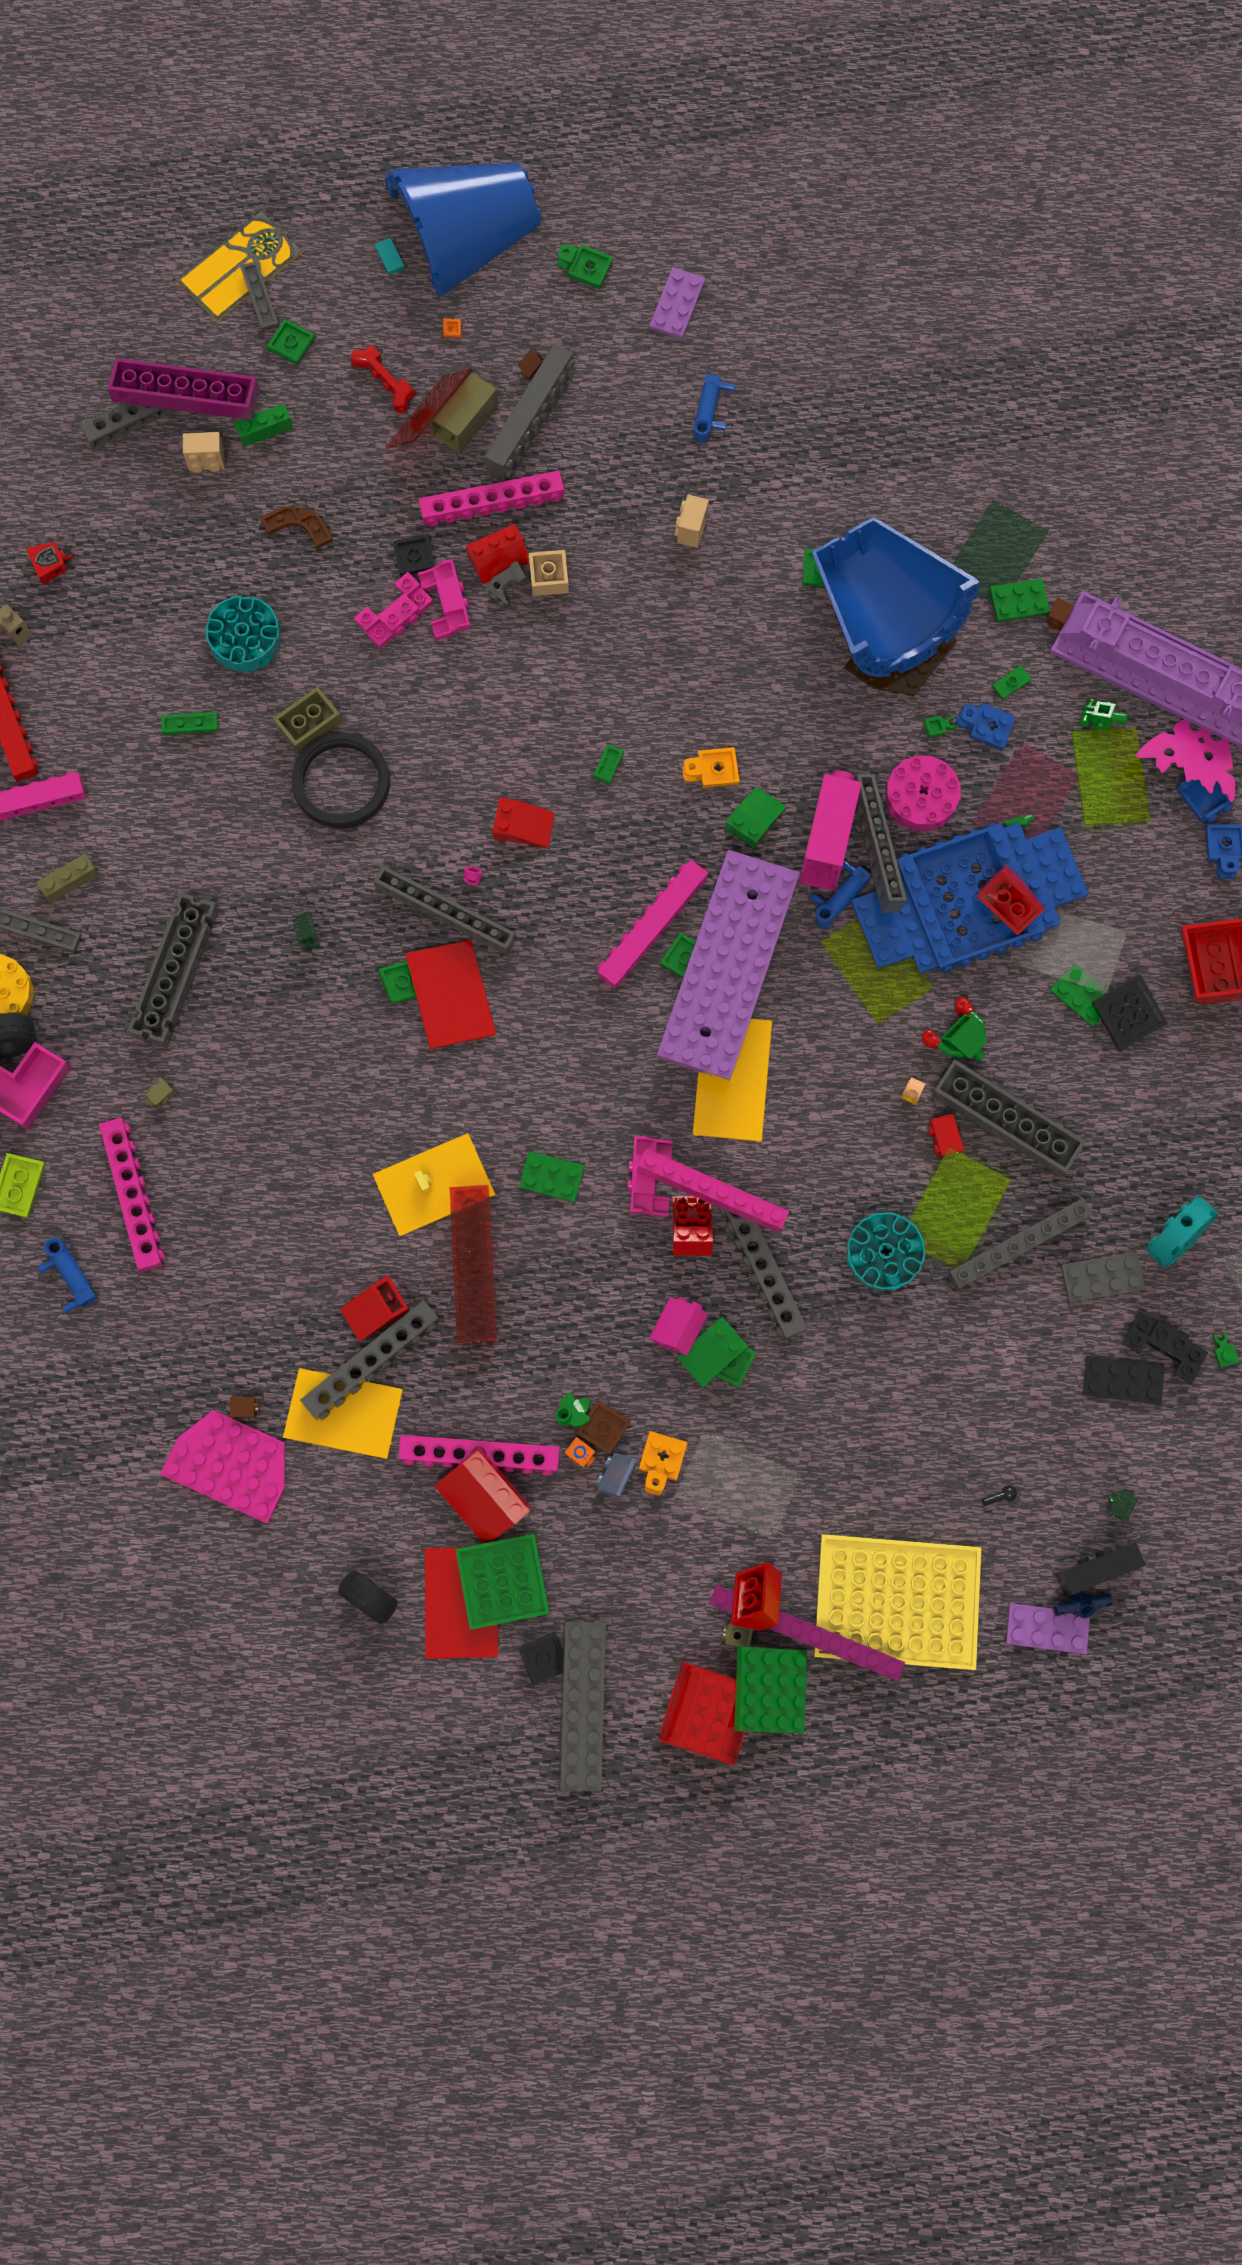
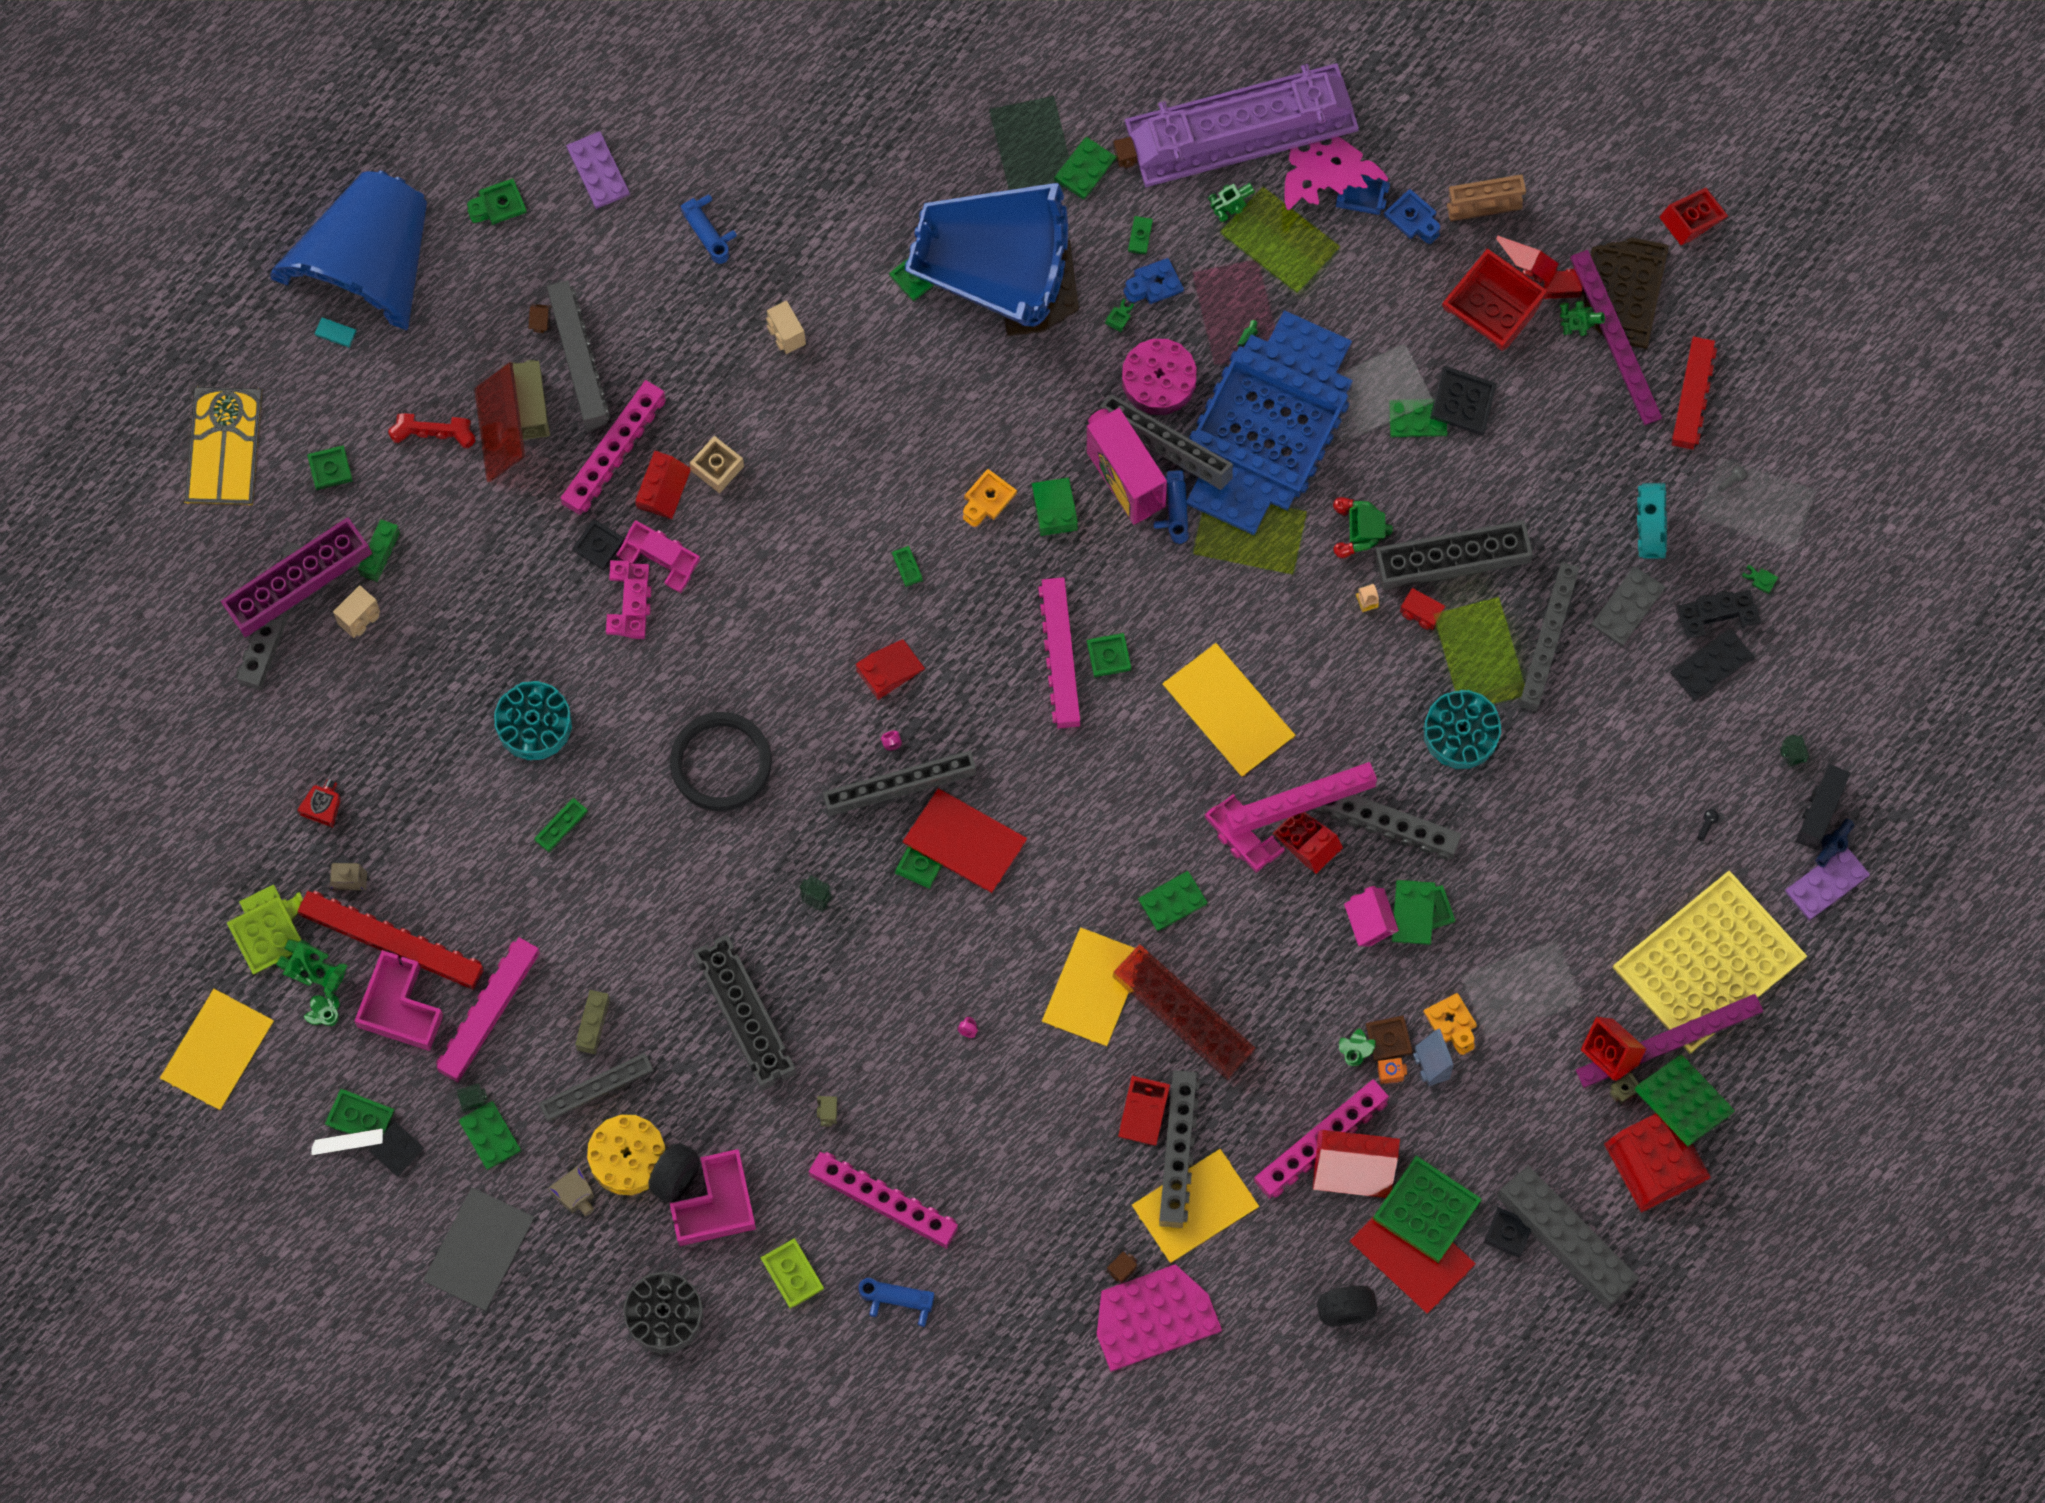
camera: 40 degrees left, 5 degrees down
(259, 295) = (267, 454): dark grey plate -> none
(298, 517) = (479, 595): reddish brown plate -> none
(307, 720) = (650, 739): olive brick -> none
(314, 1130) = (968, 1029): none -> dark pink tile
(423, 1181) = (1085, 990): light yellow plate -> none
(451, 328) = (444, 345): orange tile -> none
(513, 574) = (693, 488): dark grey tile -> none
(728, 965) = (1150, 628): medium lavender piece -> none
(1010, 899) = (1302, 395): red slope -> none

